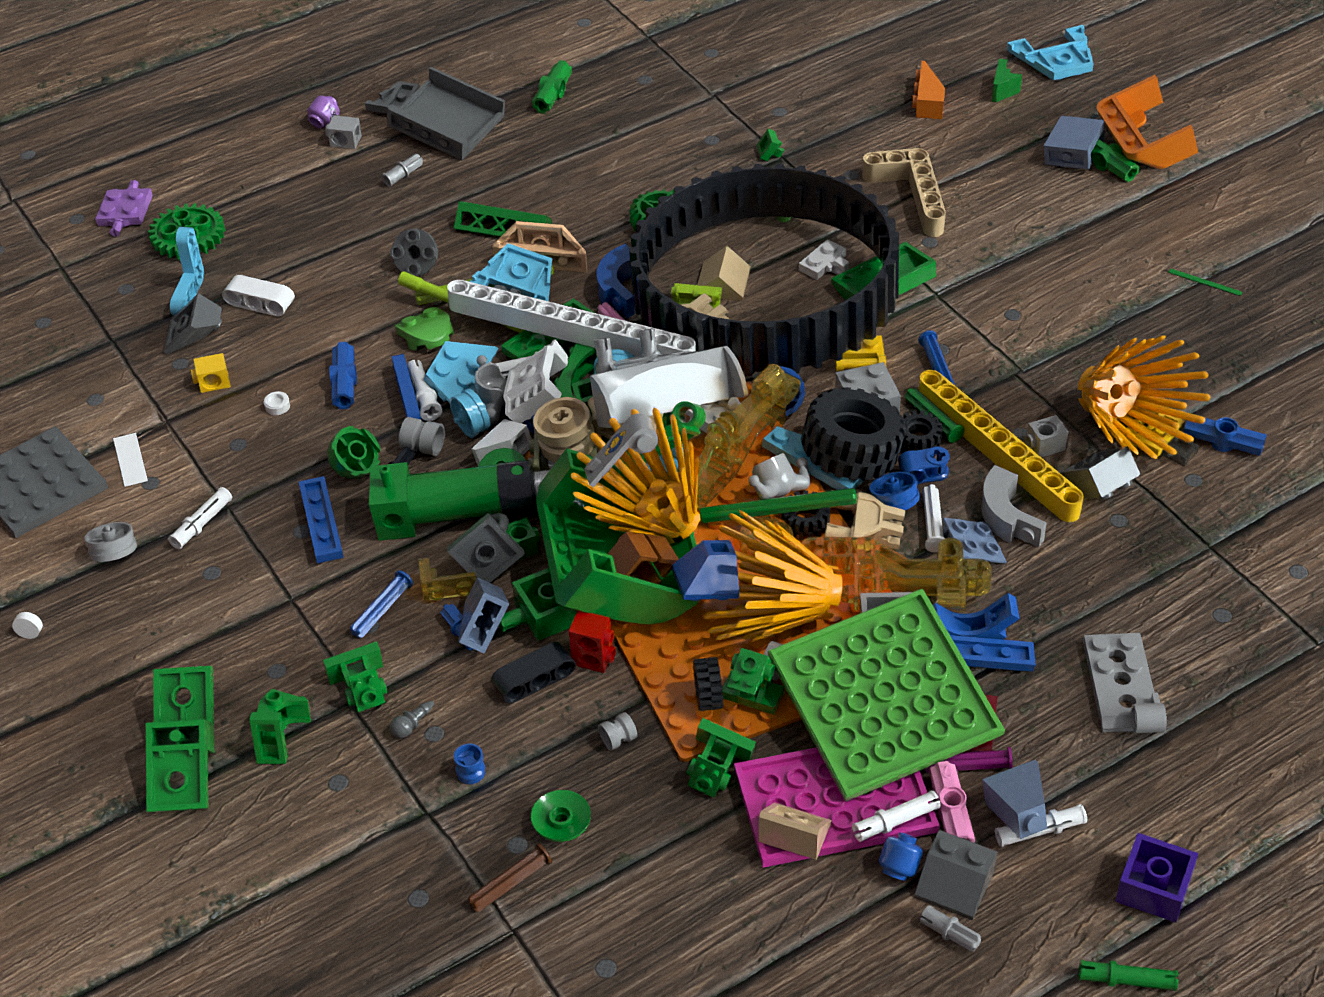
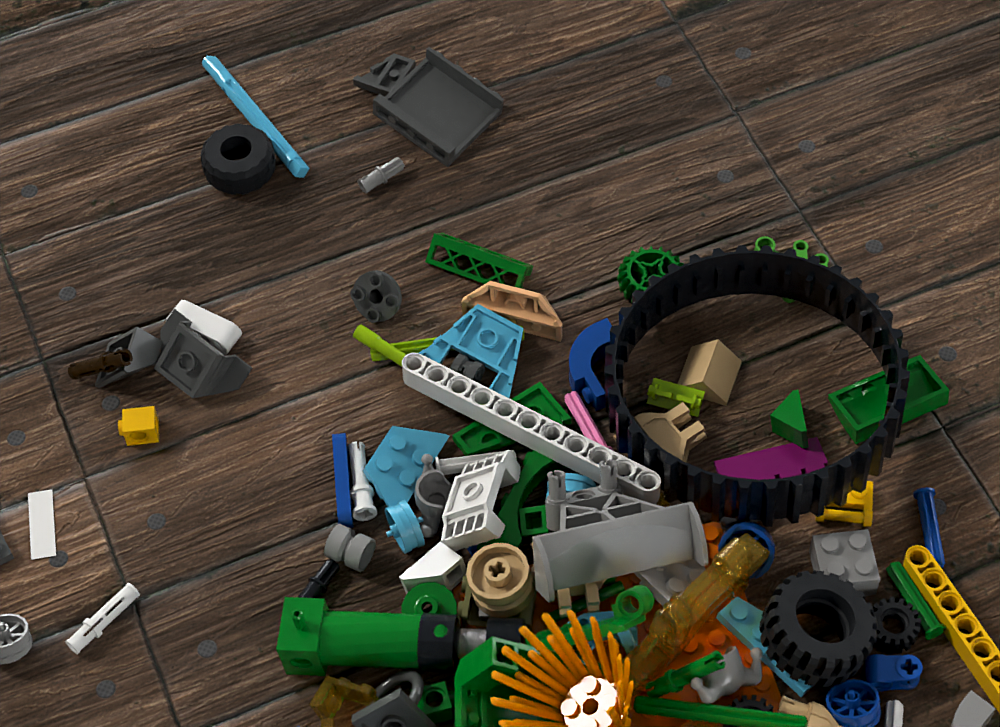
camera: 10 degrees right, 10 degrees up
(124, 207) = (79, 185): medium lavender plate -> none
(174, 323) = (106, 362): none -> dark brown pin
(192, 269) = (139, 287): medium azure beam -> none
(205, 222) = (140, 228): green gear -> none
(258, 318) = (195, 363): none -> dark grey piece
(269, 170) = (238, 175): none -> black tyre
(276, 403) = (204, 473): white tile -> none
(280, 140) = (255, 115): none -> medium azure piece
(321, 519) = (228, 641): blue plate -> none
(322, 111) = (306, 84): medium lavender head -> none
(343, 375) = (278, 449): blue piece -> none
(344, 132) = (325, 115): light grey brick -> none
(353, 452) = (273, 563): green cylinder -> none
(427, 329) = (376, 399): bright green slope -> none
(430, 539) = (334, 691): none -> clear yellow bracket
(552, 87) = (559, 82): green piece -> none
(635, 433) = (563, 647): light grey door -> none
(734, 487) = (675, 680): none -> green pin
(769, 145) = (787, 197): green tile -> none
(800, 299) = (789, 420): none -> green slope
(825, 258) = (826, 364): white hinge -> none
(917, 168) = (947, 249): tan beam -> none
(928, 94) = (981, 147): orange slope -> none

